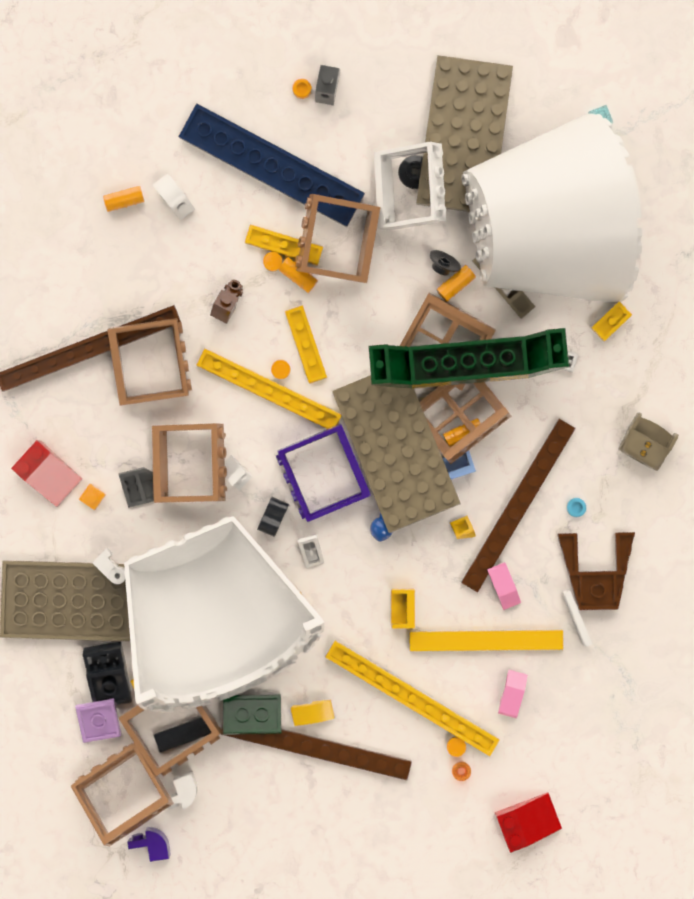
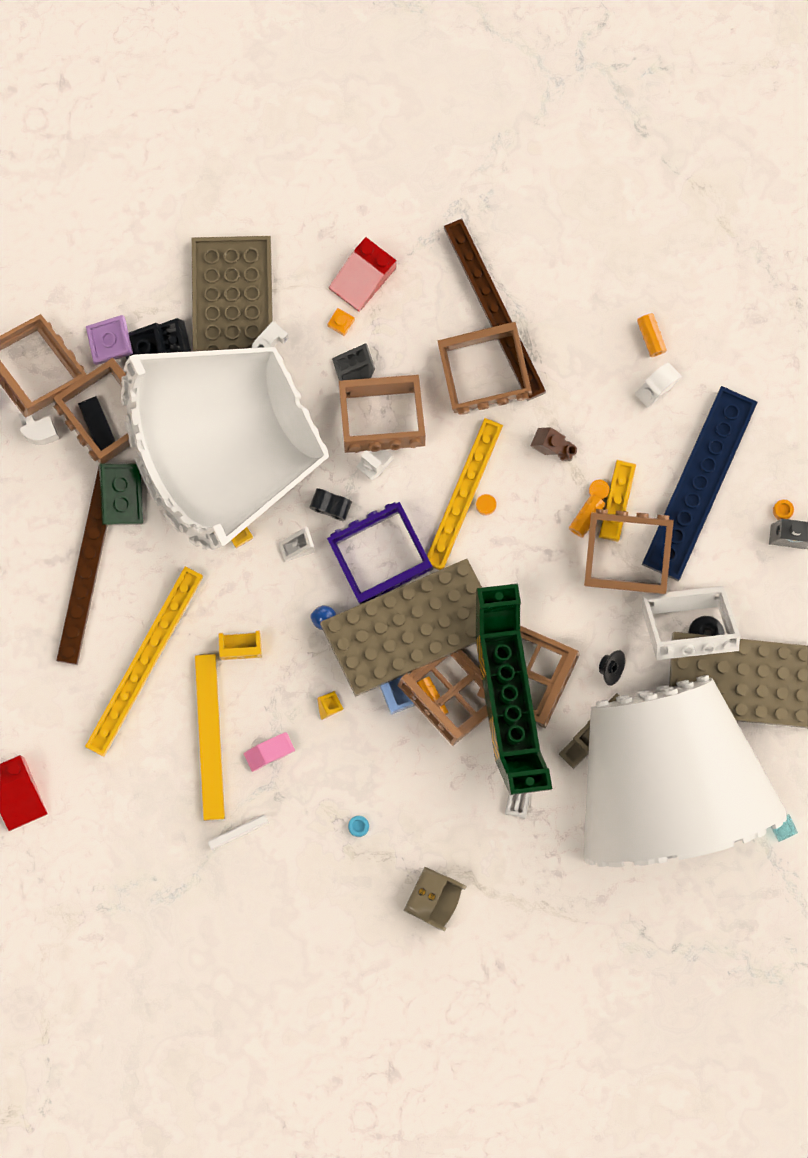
camera: 75 degrees right, 10 degrees down
(305, 344) = (514, 529): yellow tile -> none
(312, 713) = (125, 557): yellow slope -> none
(456, 283) = (591, 681): light orange axle -> none
(456, 746) = (93, 711): light orange tile -> none
(461, 777) = (61, 718): clear orange plate -> none
(513, 694) = (153, 767): bright pink slope -> none
(518, 505) = (358, 763): reddish brown plate -> none
(597, 588) = (271, 853): reddish brown wing -> none
(611, 321) = (563, 852): yellow plate -> none

